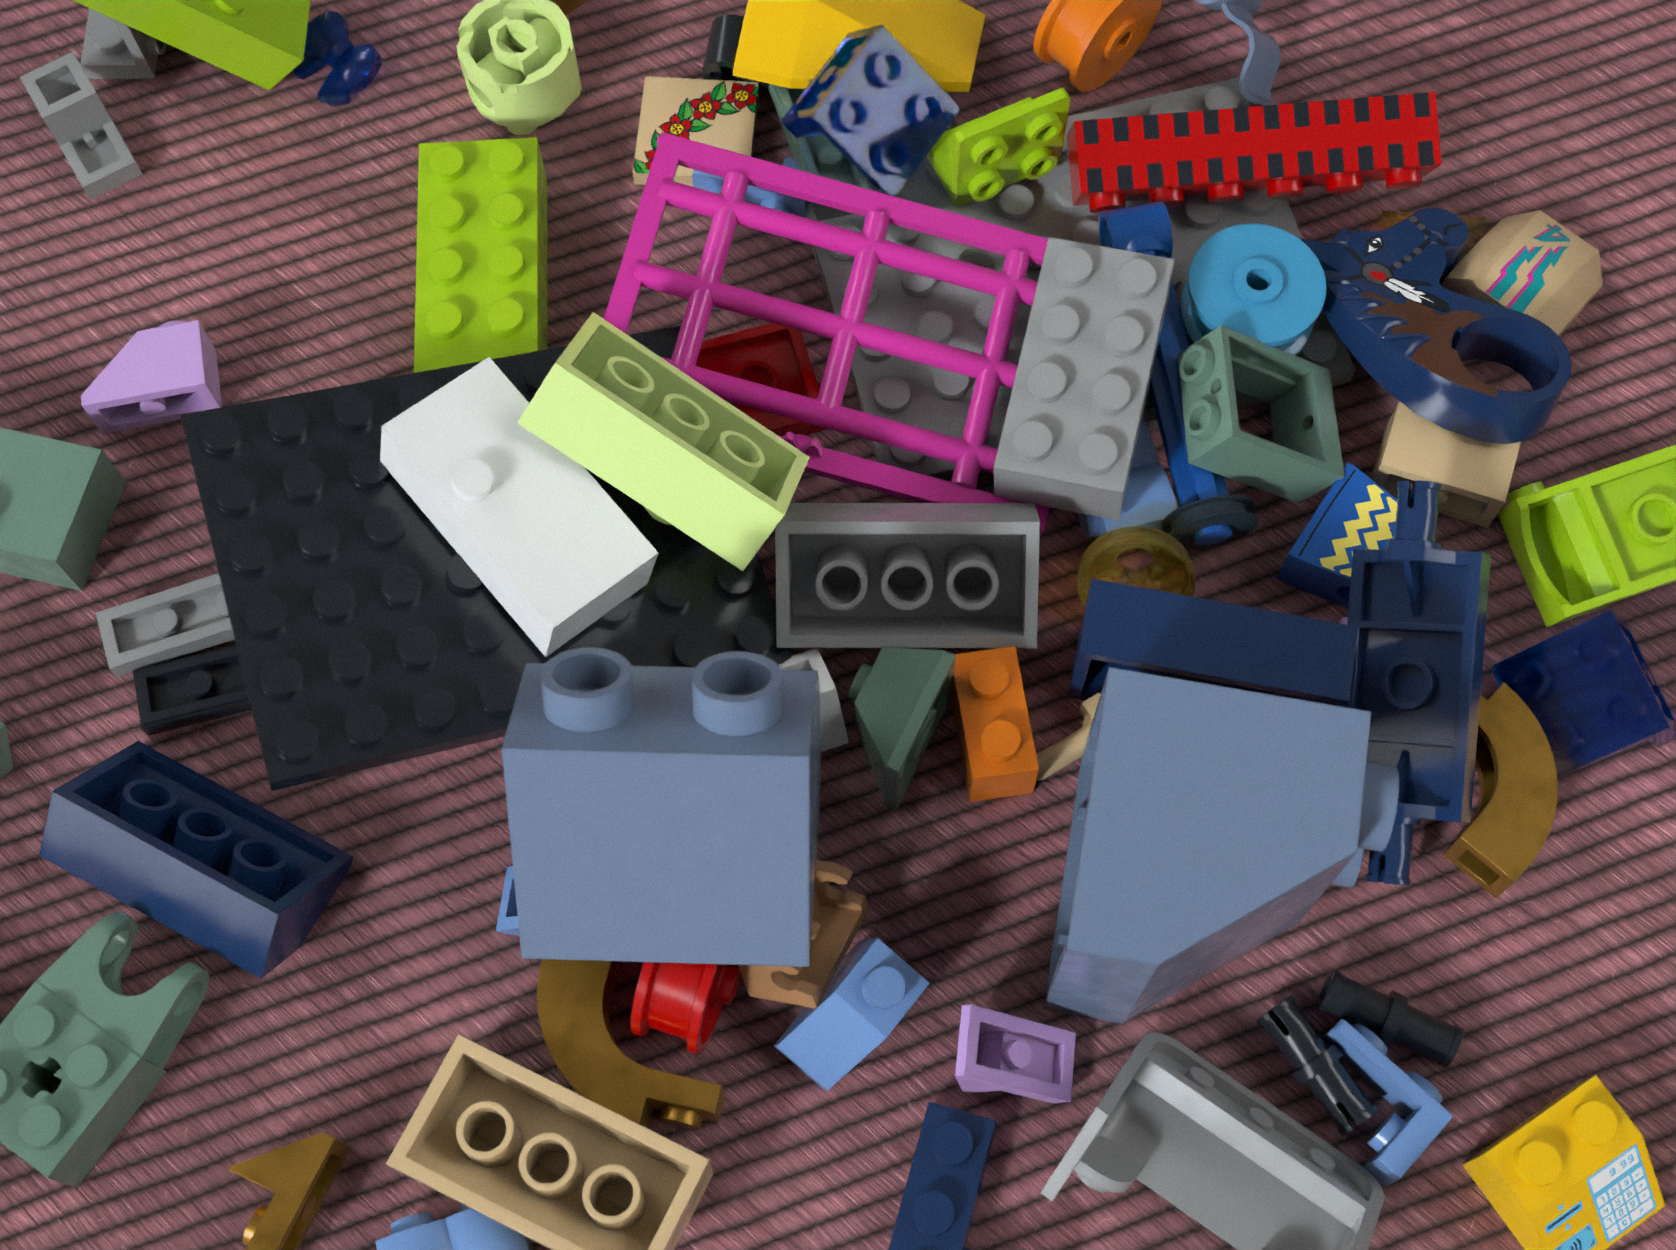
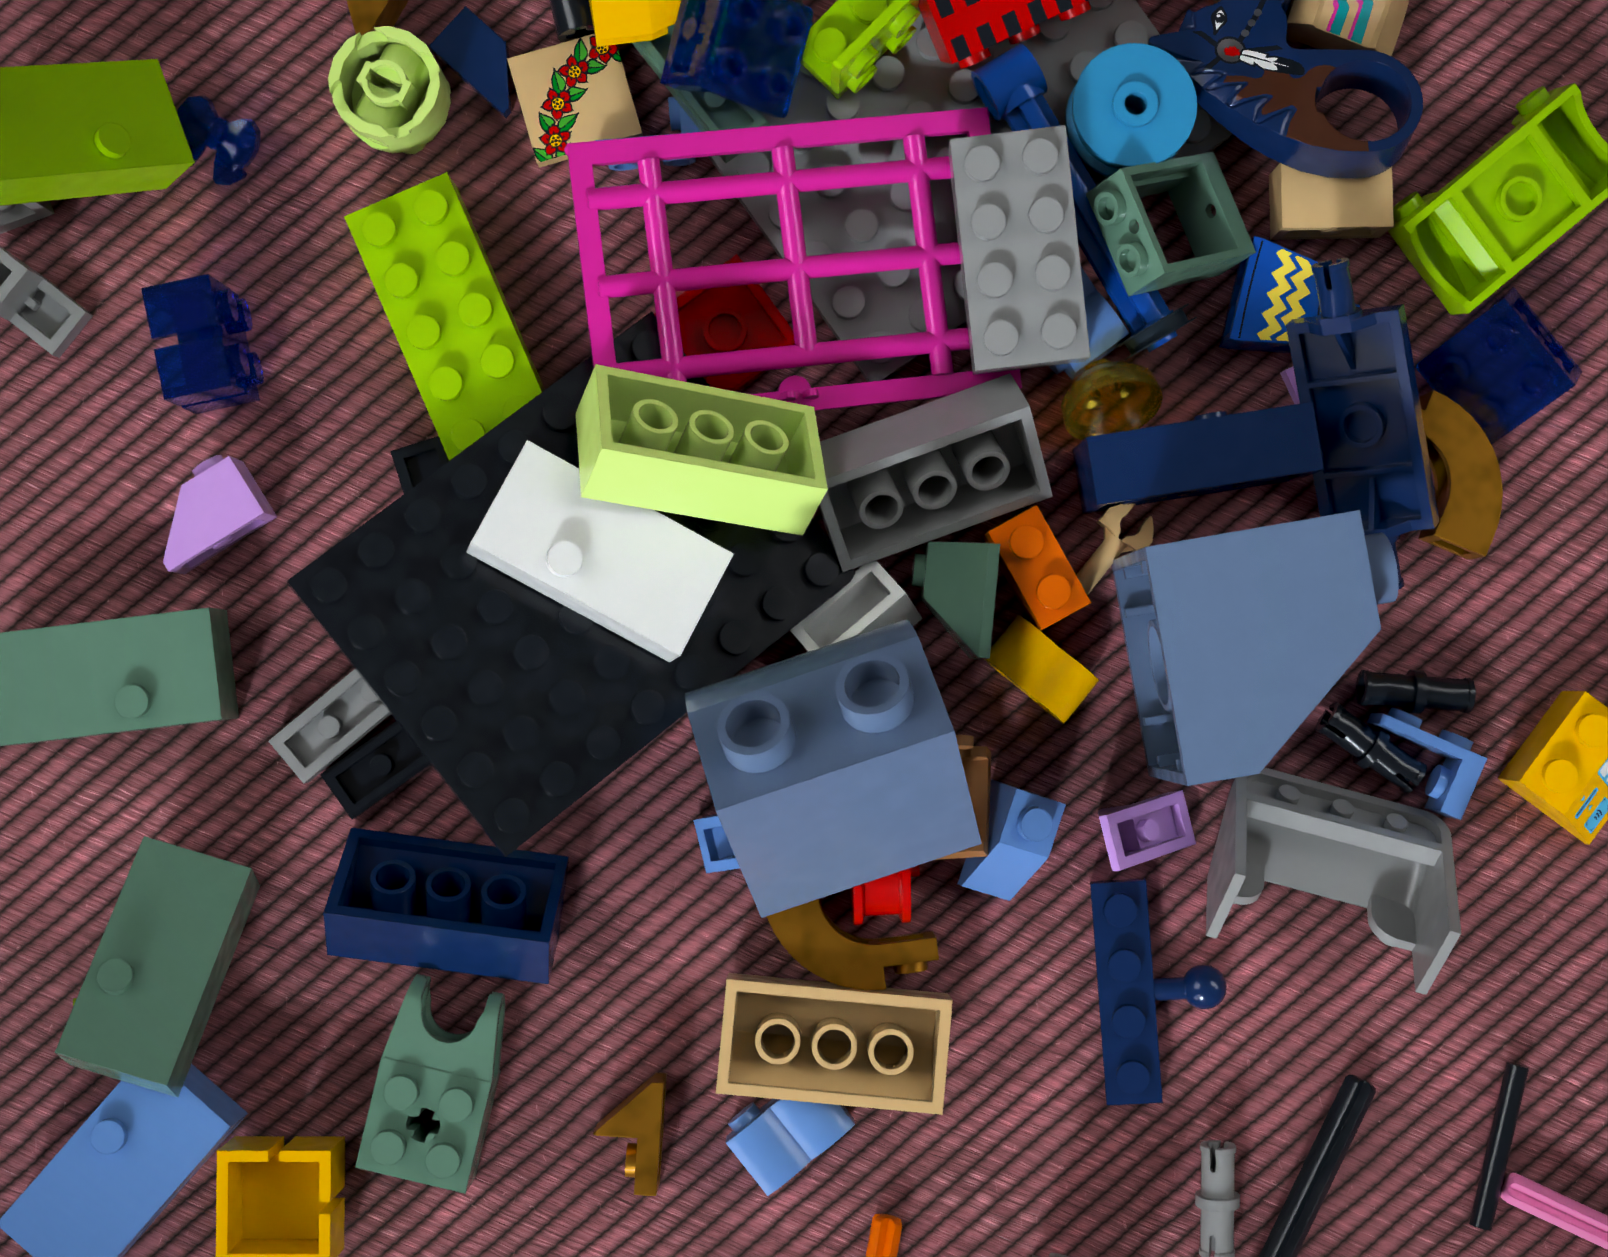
camera: 25 degrees left, 20 degrees up
(227, 230) = (213, 356): none -> clear blue piece
(617, 69) = (477, 58): none -> dark blue tile
(959, 836) = (1041, 669): none -> yellow axle

